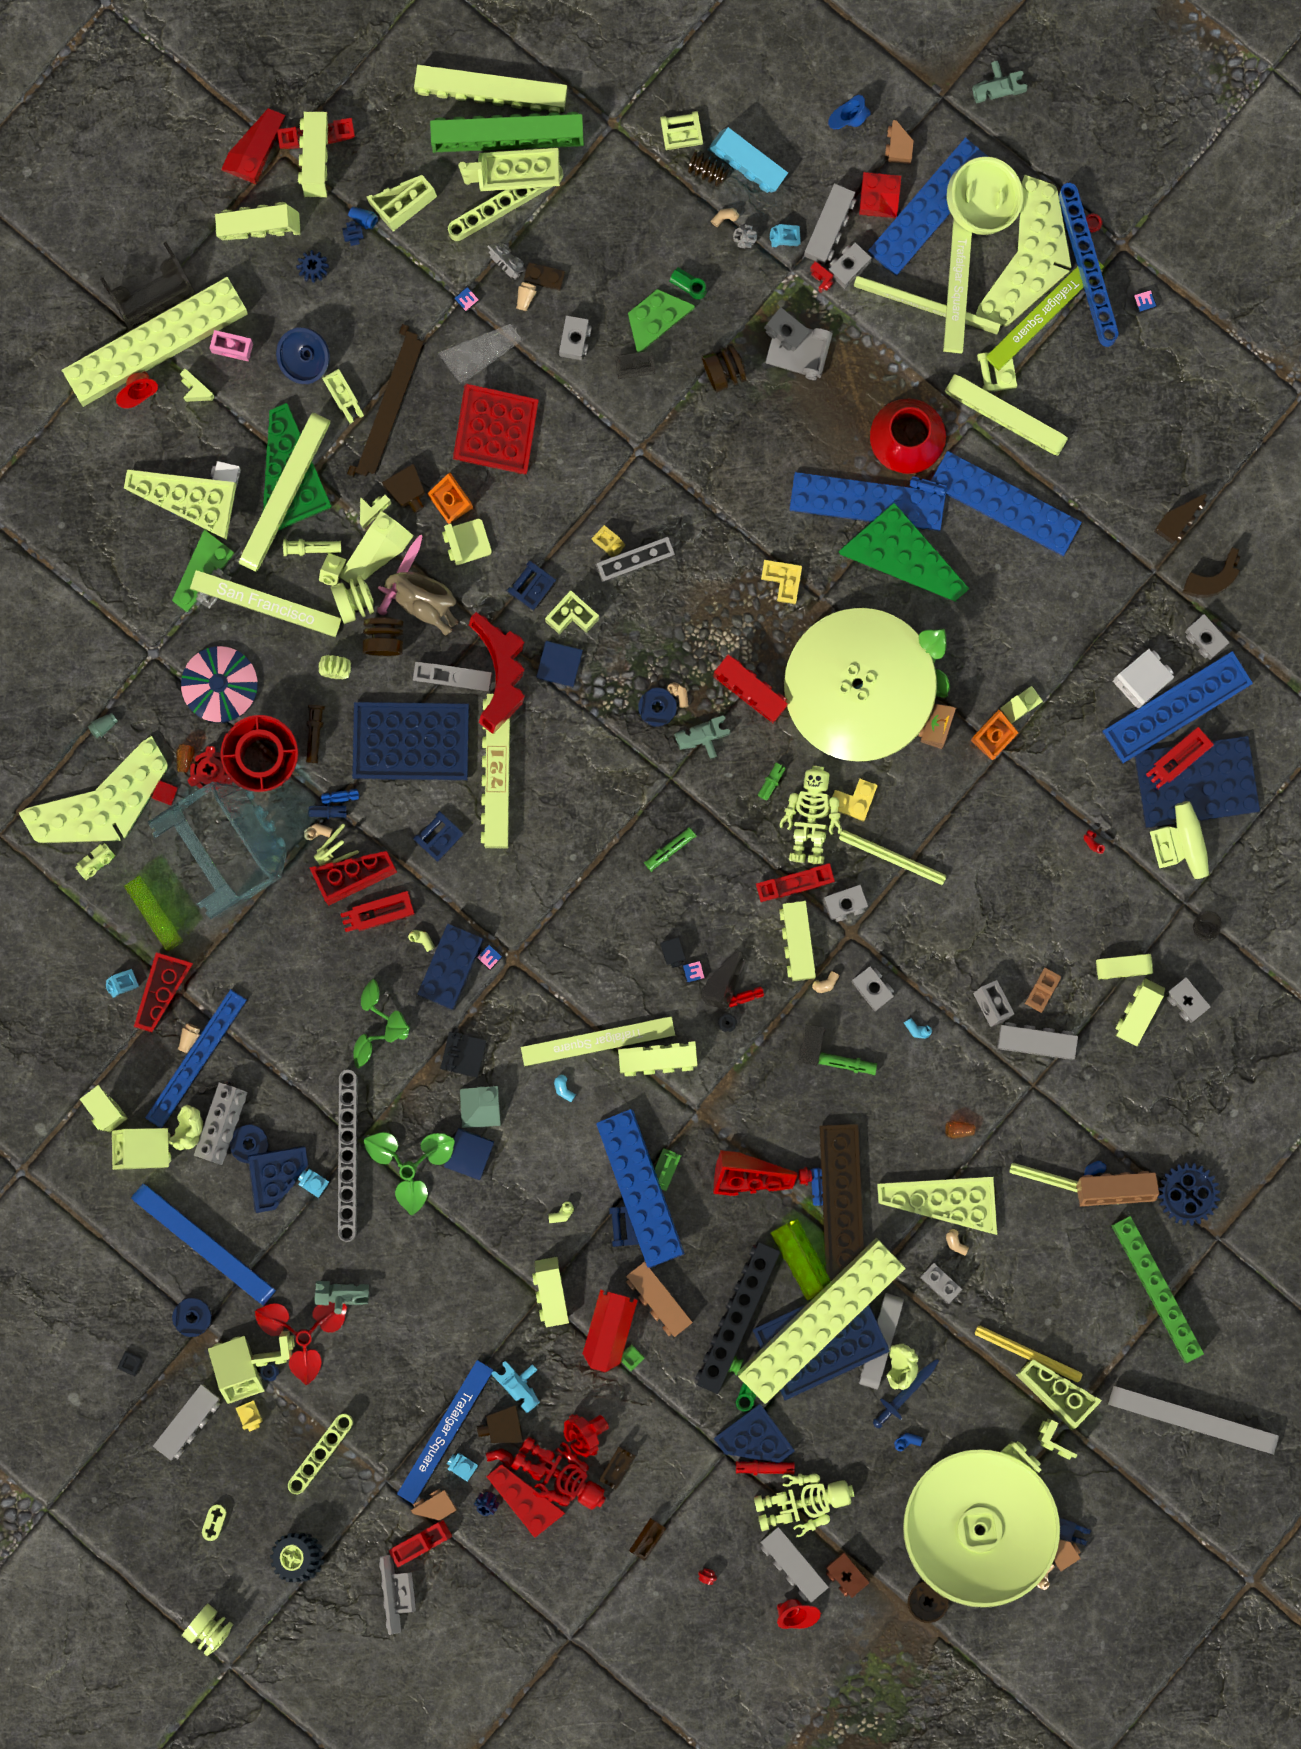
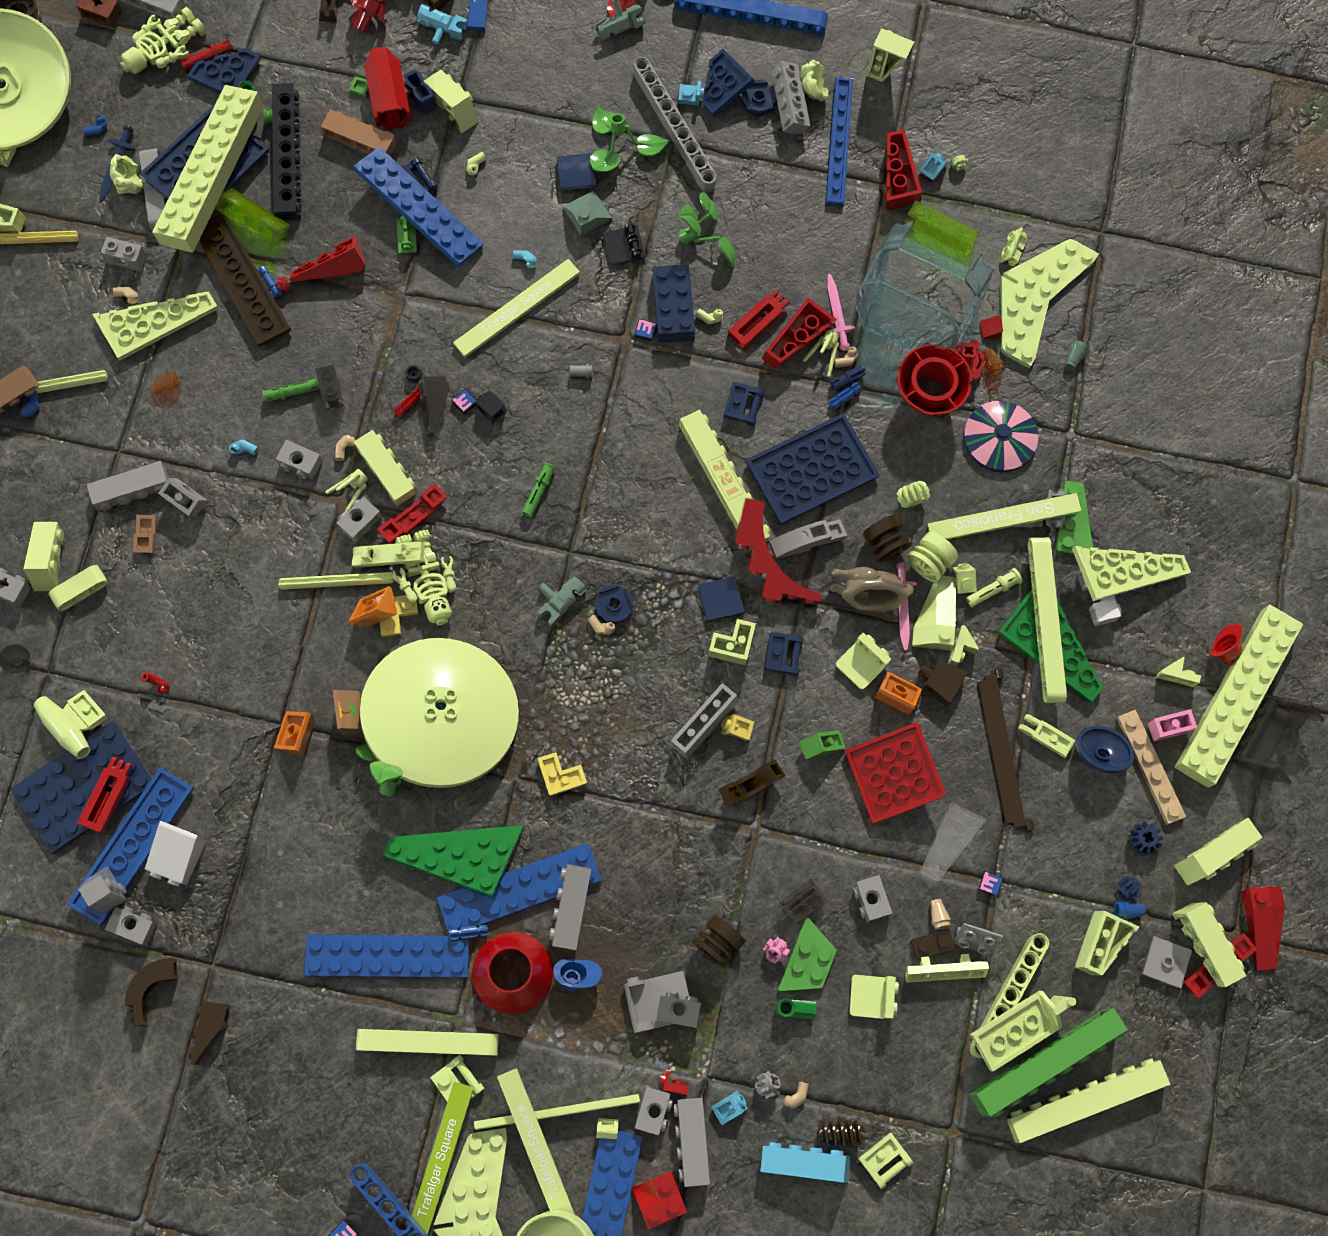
camera: 145 degrees right, 10 degrees down
(94, 974) = (959, 162): none -> yellowish green plate
(140, 1148) = (841, 51): yellowish green slope -> none
(188, 1037) = (855, 152): tan cone -> none
(269, 324) = (1151, 767): none -> tan plate
(302, 875) = (840, 328): none -> bright pink sword
(314, 724) = (901, 441): dark brown pin -> none
(357, 160) = (1166, 962): none -> light grey plate
(532, 241) = (961, 970): none -> yellowish green hinge
(543, 488) = (822, 744): none -> bright green slope
(571, 945) = (581, 371): none -> light grey pin
(577, 1309) = (419, 91): none -> dark blue brick
(618, 259) = (873, 996): none -> yellowish green bracket
(624, 485) = (752, 784): none -> dark brown arch
(657, 1058) = (458, 316): yellowish green wedge -> none
(679, 337) = (776, 950): none -> bright pink gear
(750, 689) = (538, 660): red wedge -> none
(771, 781) = (478, 591): bright green axle -> none
(830, 943) = (356, 480): none -> yellowish green plant
(832, 460) = (571, 906): none -> light grey brick
(835, 852) = (388, 554): none -> yellowish green hinge
(854, 403) = (577, 974): none -> blue piece
(872, 810) = (374, 608): none -> orange slope
(893, 271) = (607, 1128): none -> yellowish green tile
(1021, 704) = (283, 772): yellowish green slope -> none
(1216, 671) = (103, 891): none -> light grey wedge

